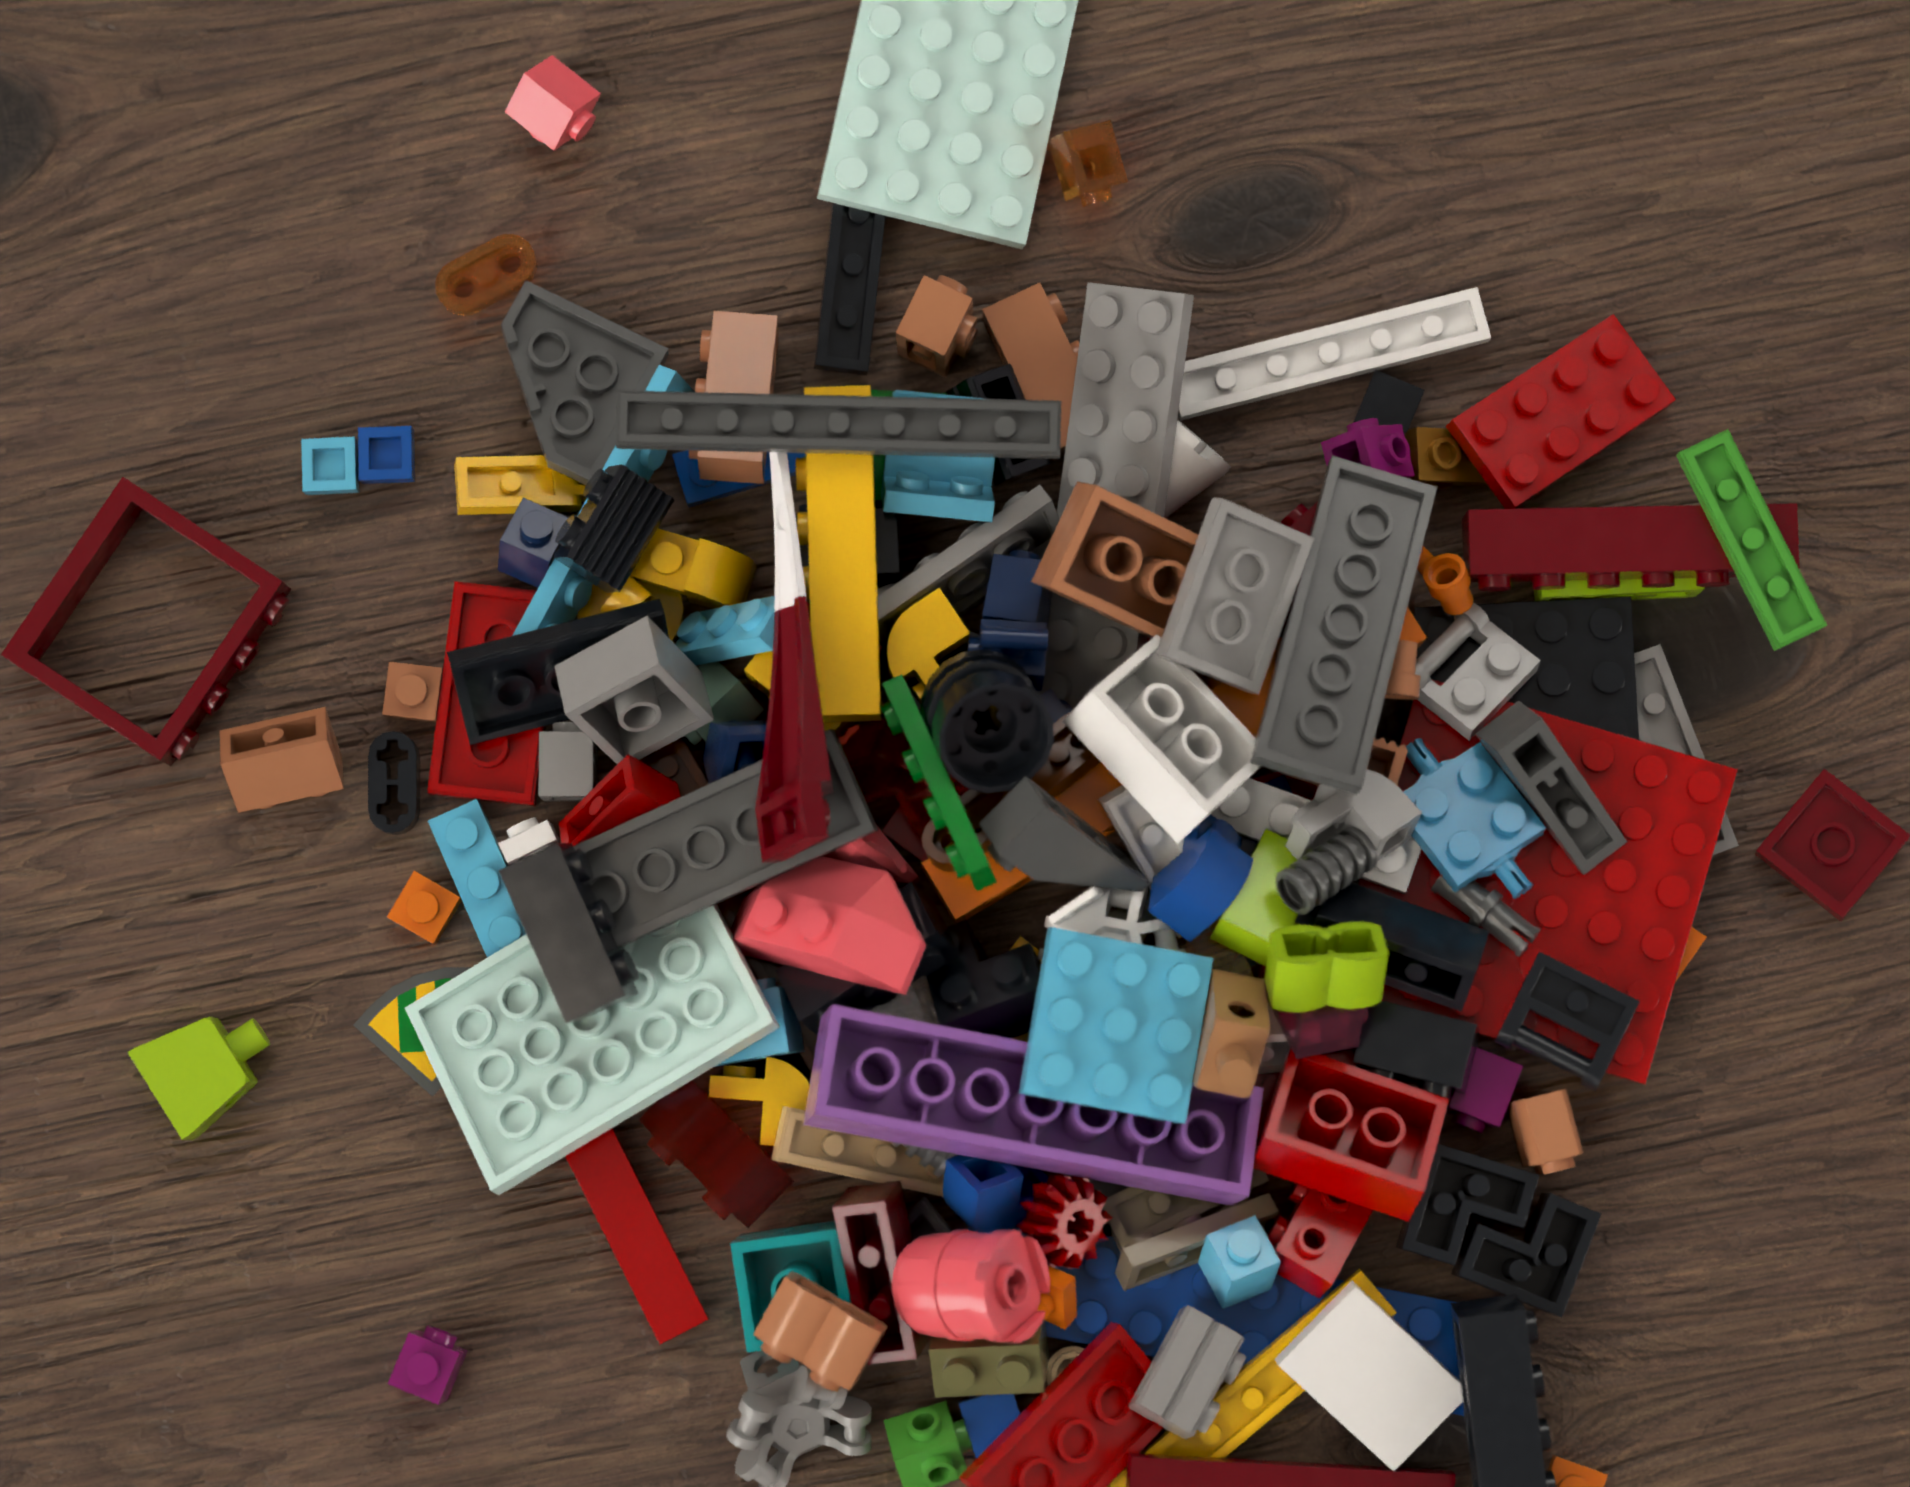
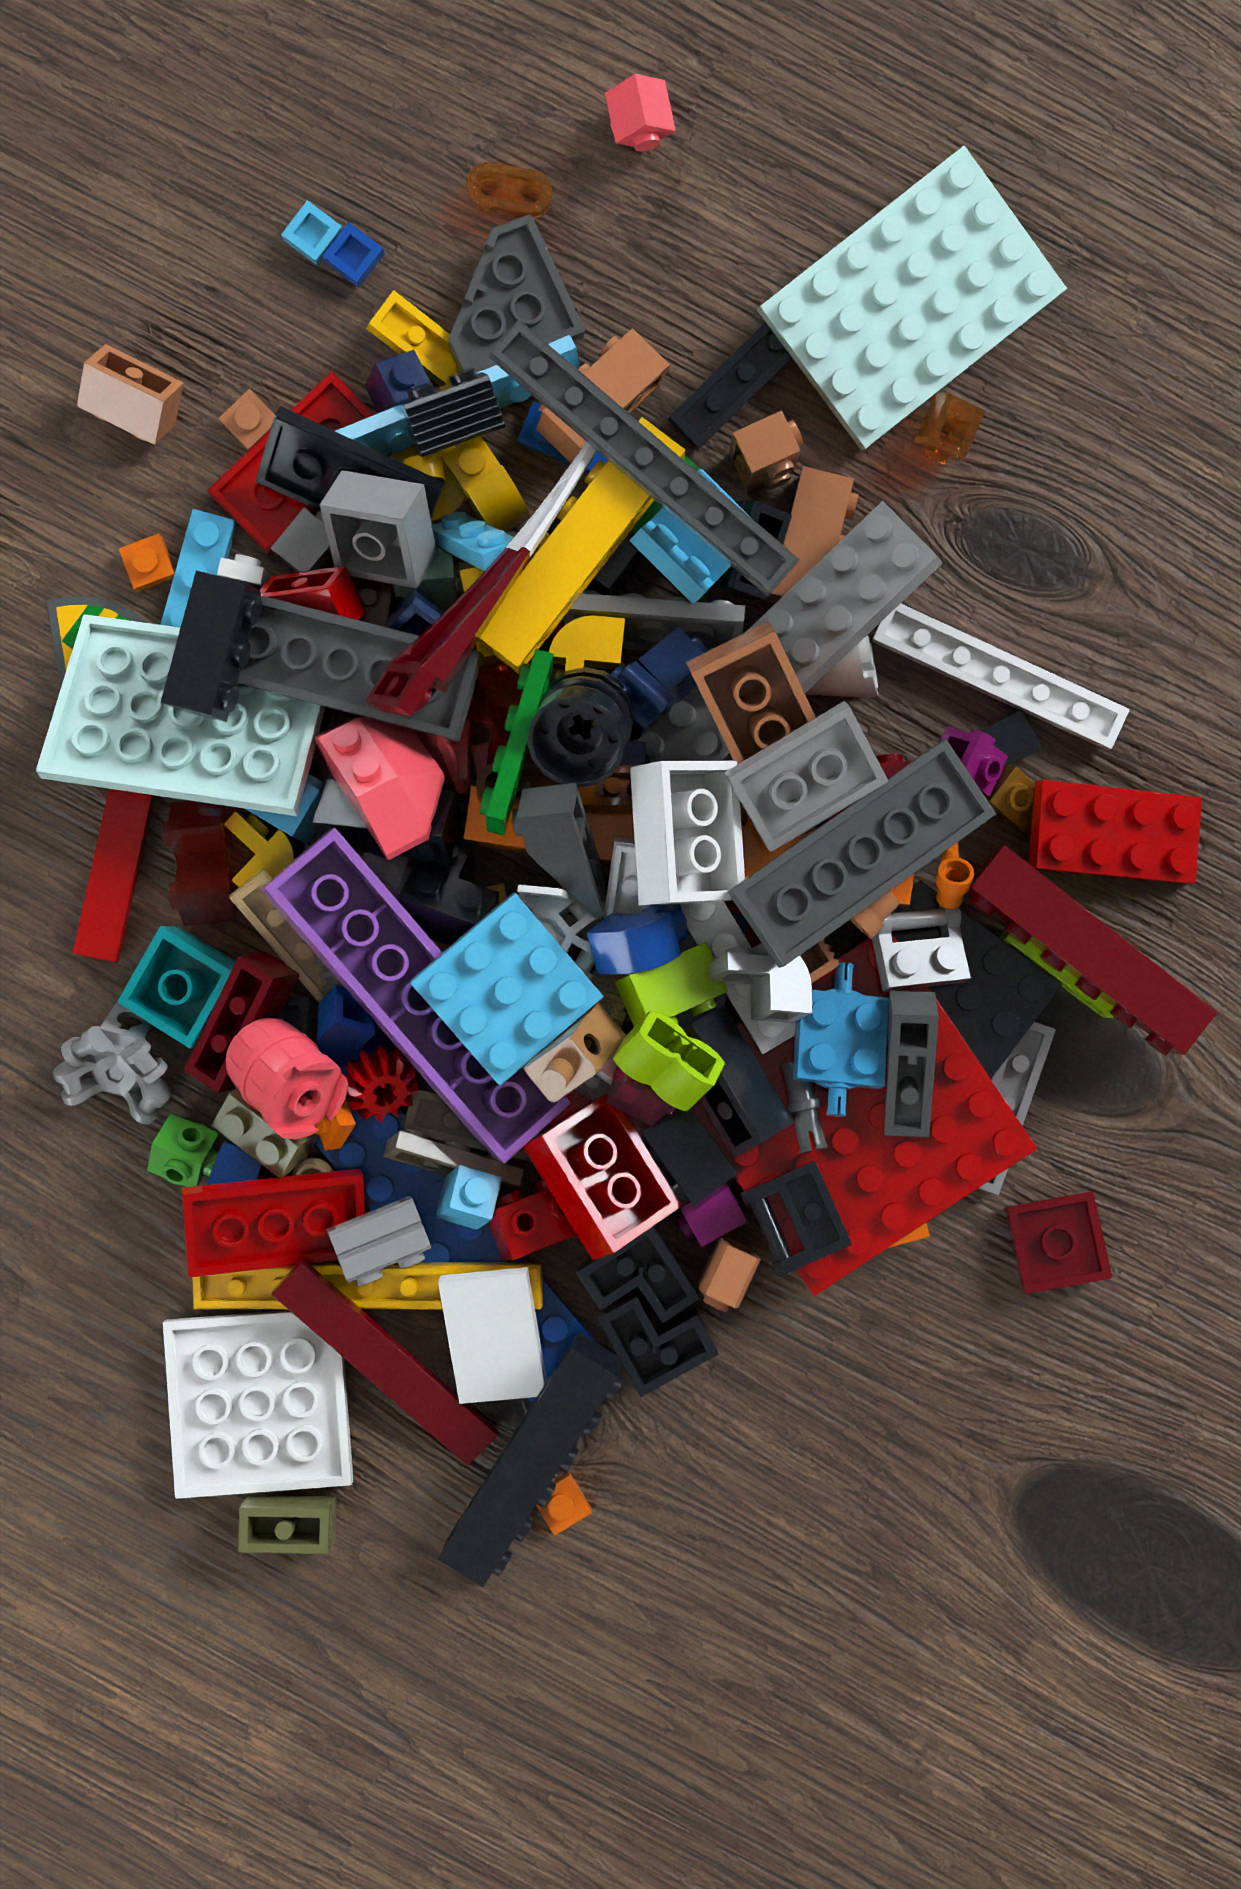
camera: 35 degrees right, 5 degrees up
(77, 576) = (95, 175): dark red window -> none
(380, 783) = (184, 460): black beam -> none
(819, 1331) = (167, 1027): nougat brick -> none
(1326, 870) = (720, 999): dark grey piece -> none
(1751, 540) = (1168, 1011): bright green tile -> none

